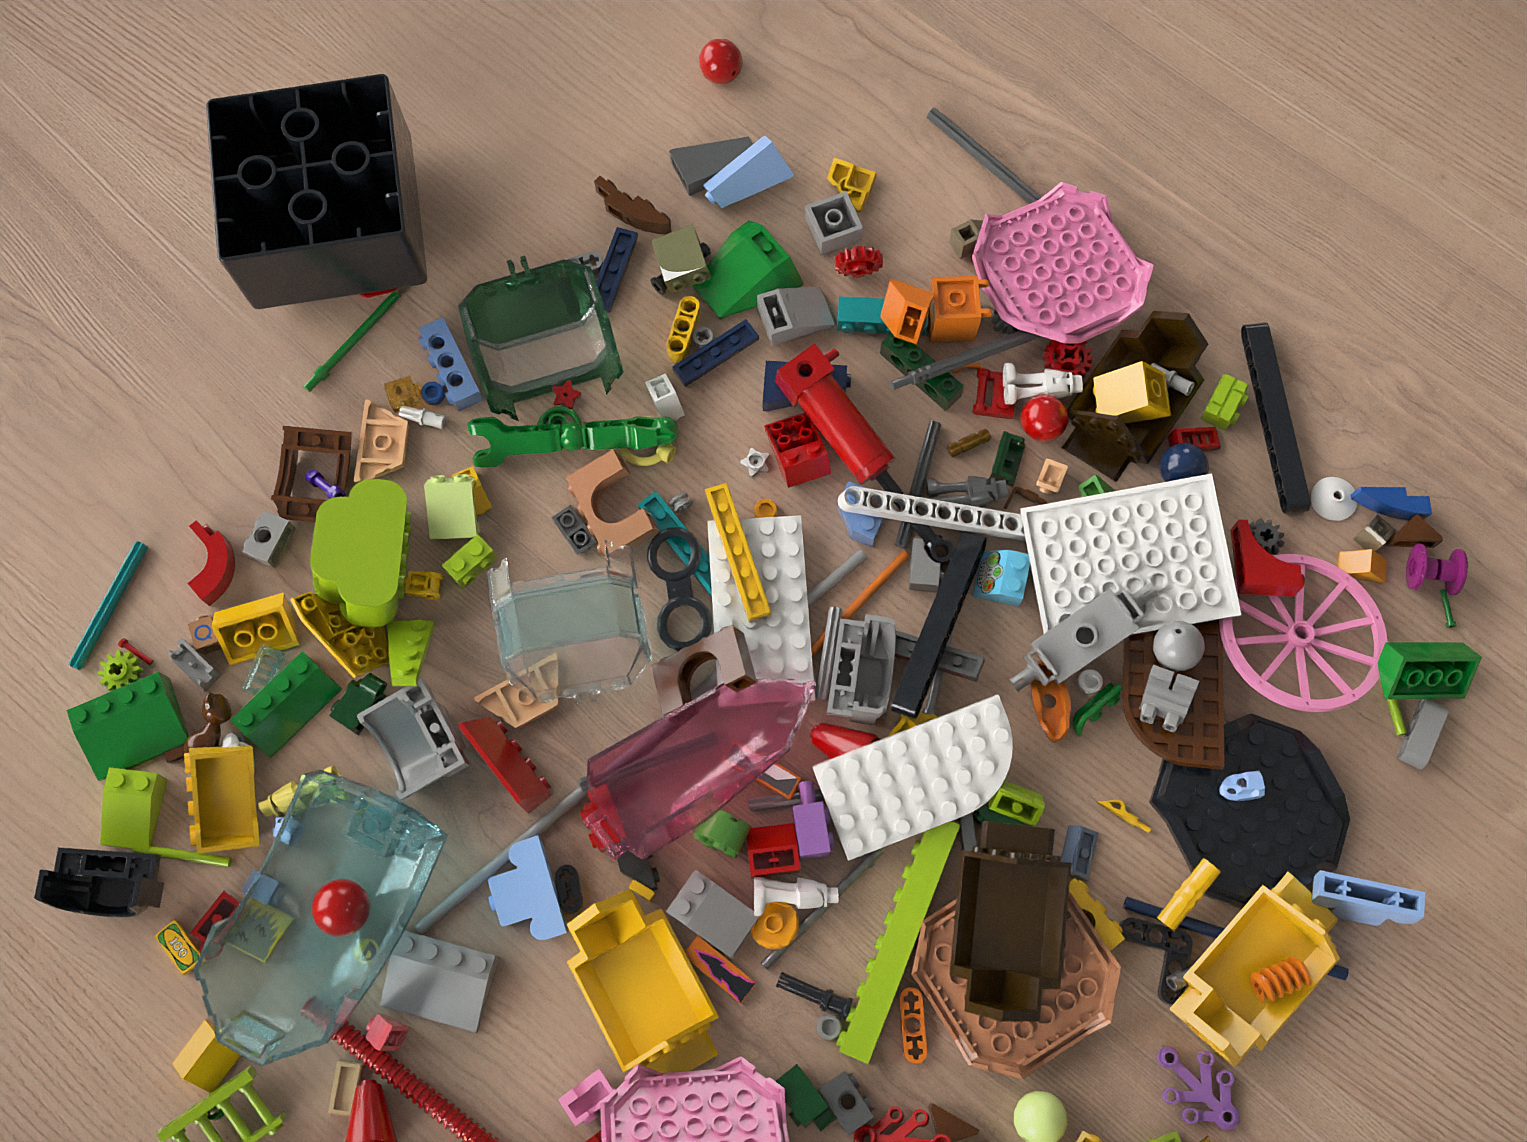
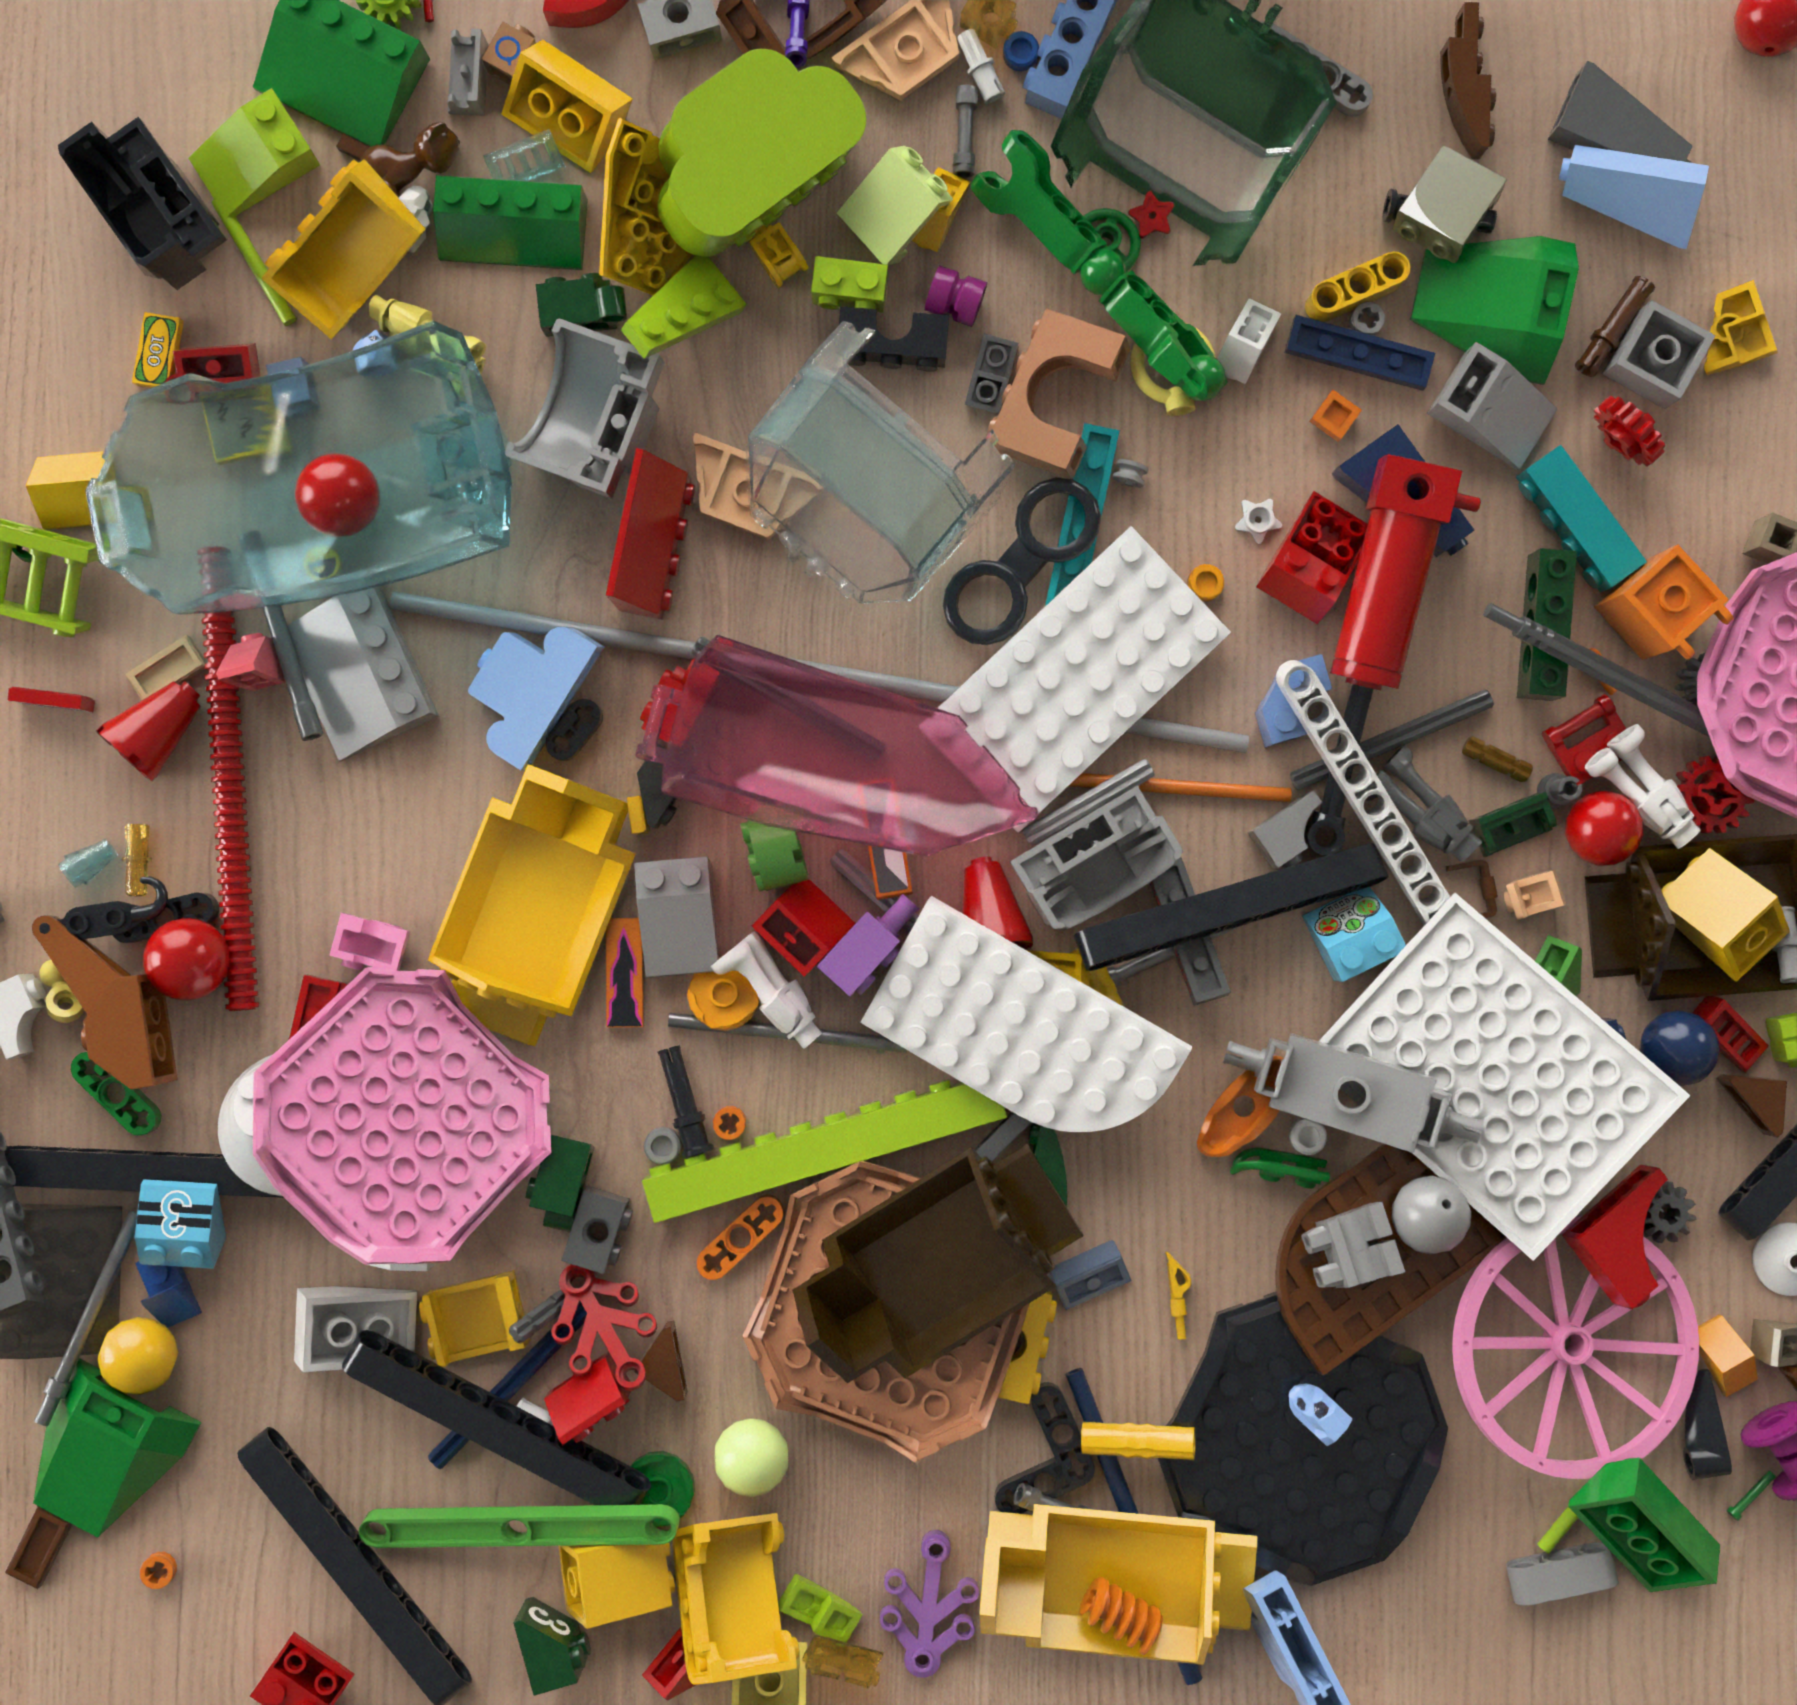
camera: 45 degrees right, 15 degrees up
(431, 1025) = (303, 707): none -> dark grey piece
(433, 437) = (964, 158): none -> flat silver bar
(521, 515) = (955, 296): none -> magenta wheel
(531, 551) = (922, 346): none -> black arch
(615, 265) = (1371, 129): dark blue plate -> none
(675, 672) = (915, 642): reddish brown arch -> none
(736, 386) = (1335, 415): none -> orange plate
(738, 552) = (1121, 594): yellow tile -> none
(806, 240) = (1607, 337): none -> reddish brown pin
(852, 974) = (718, 1120): none -> orange bush
(906, 310) = (1607, 546): orange slope -> none
(1008, 423) = (1559, 789): none -> flat silver pin
(1018, 803) = (1087, 1165): lime brick -> none
(1240, 451) = (1760, 1099): none -> reddish brown slope
(1405, 610) = (1705, 1438): none -> black piece

